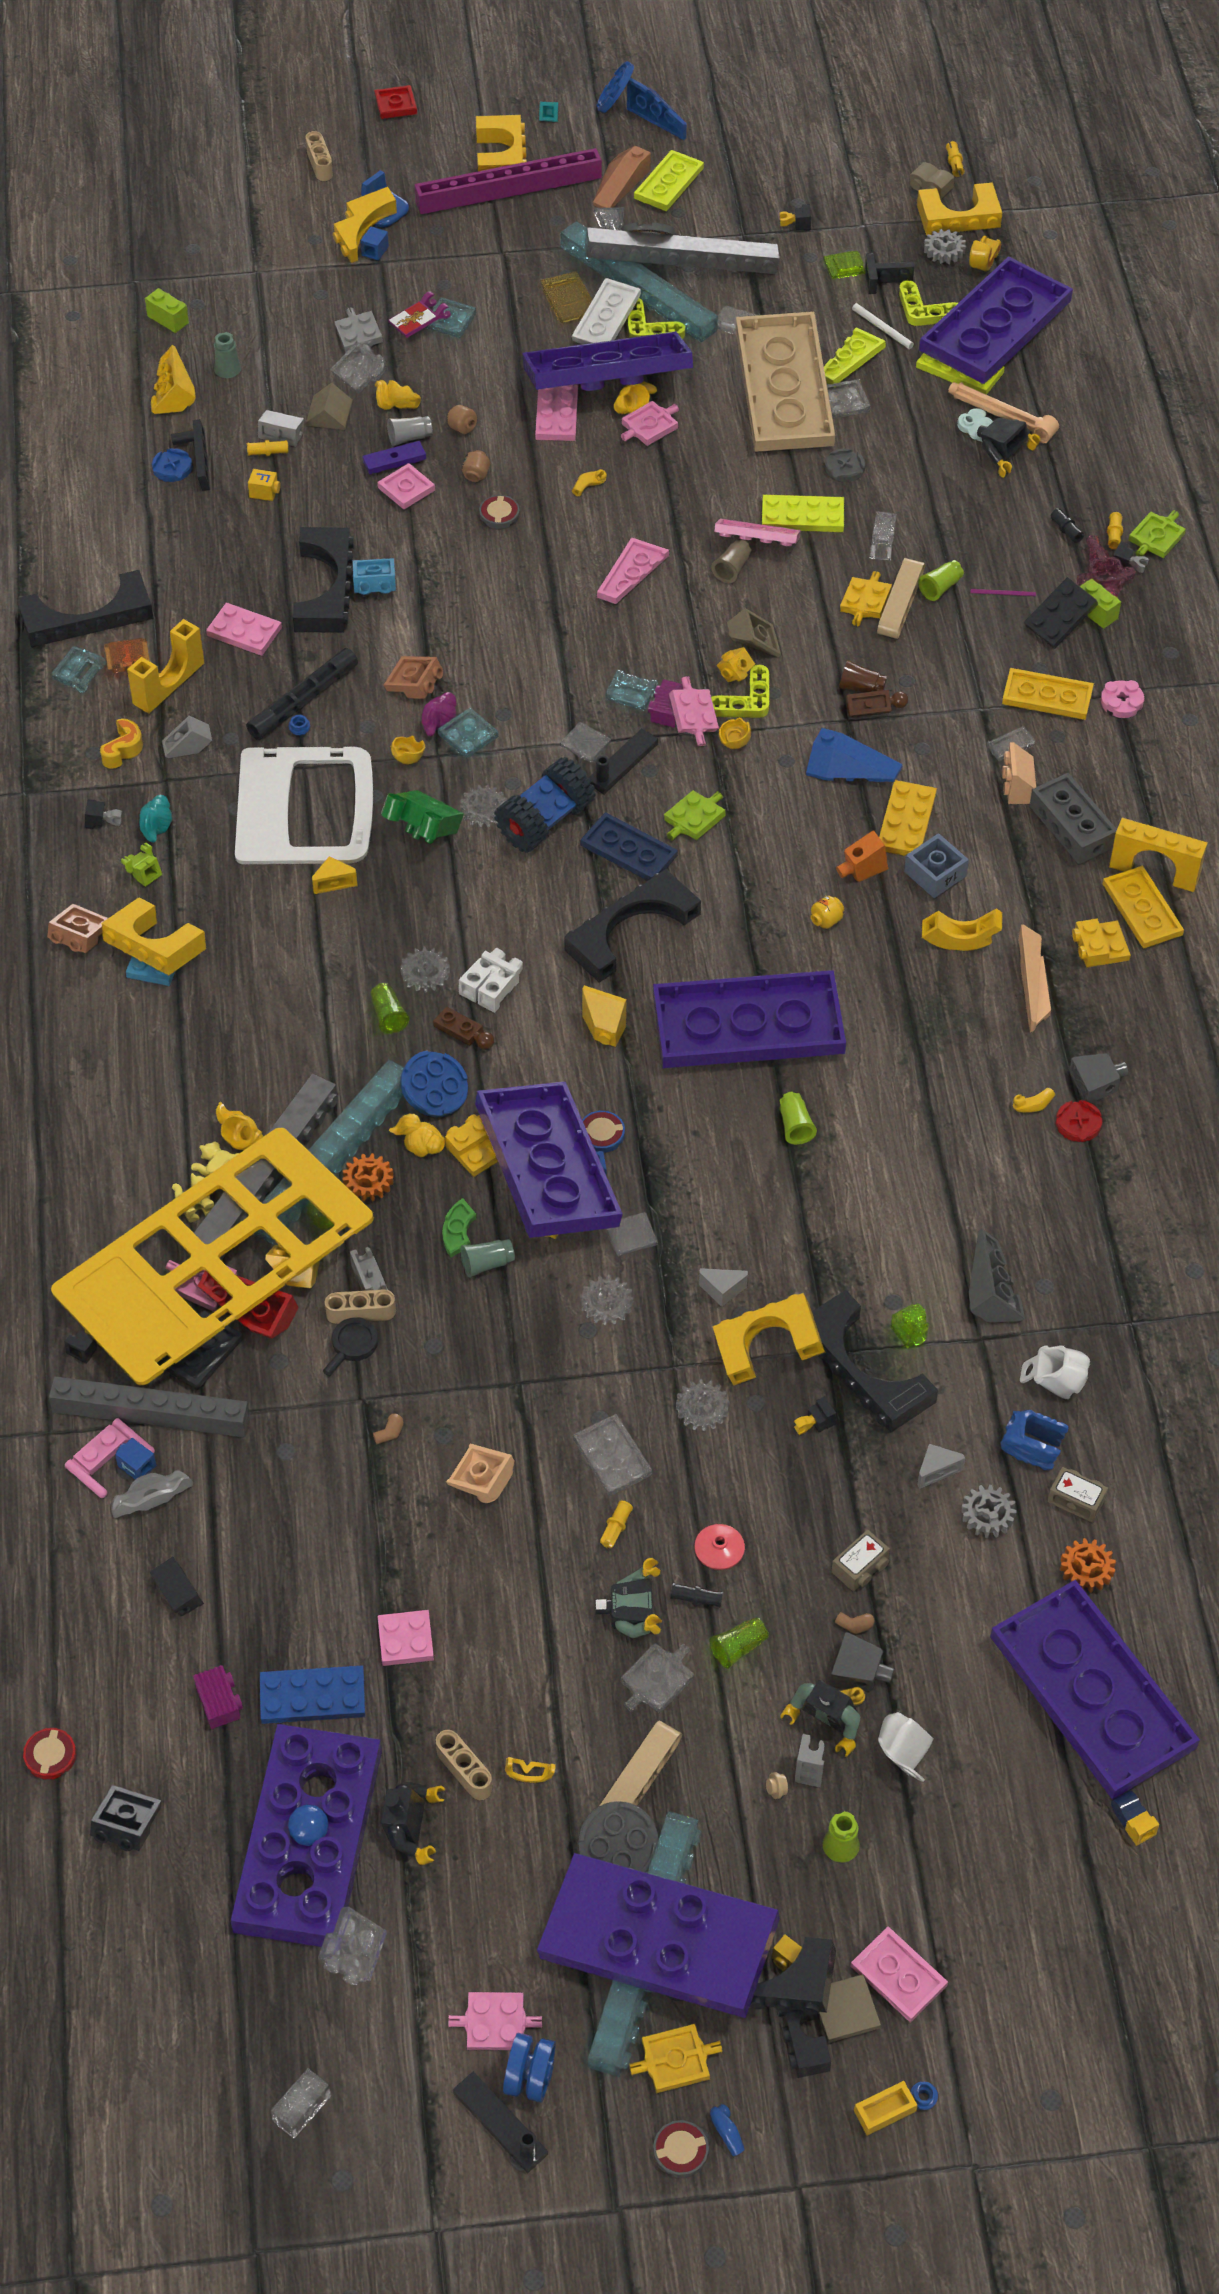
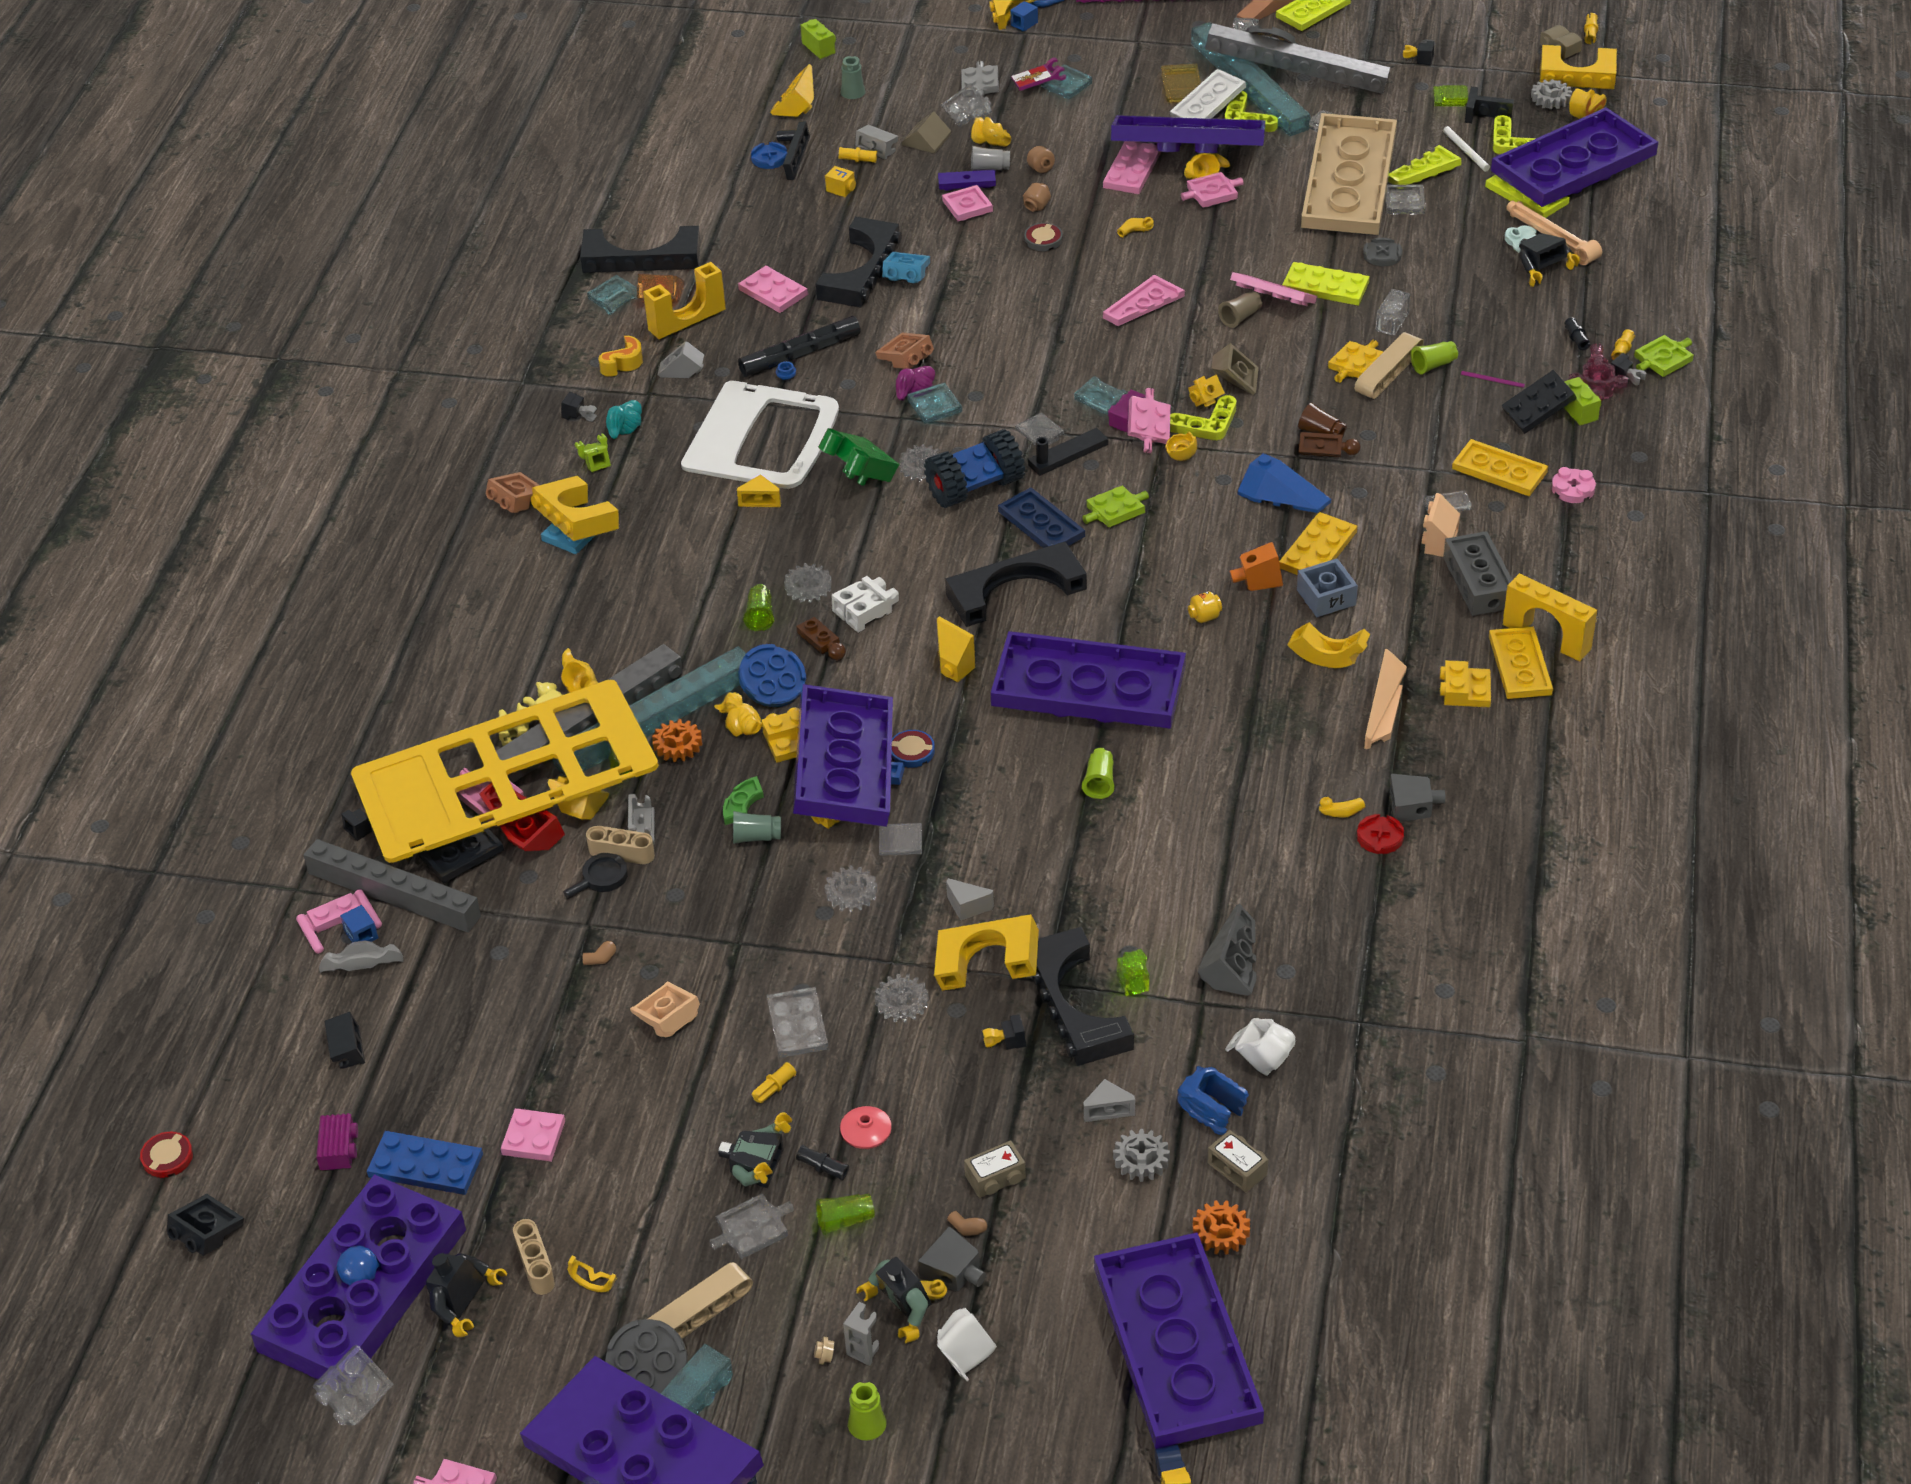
camera: 20 degrees right, 10 degrees down
(407, 749) = (872, 406): yellow hair -> none

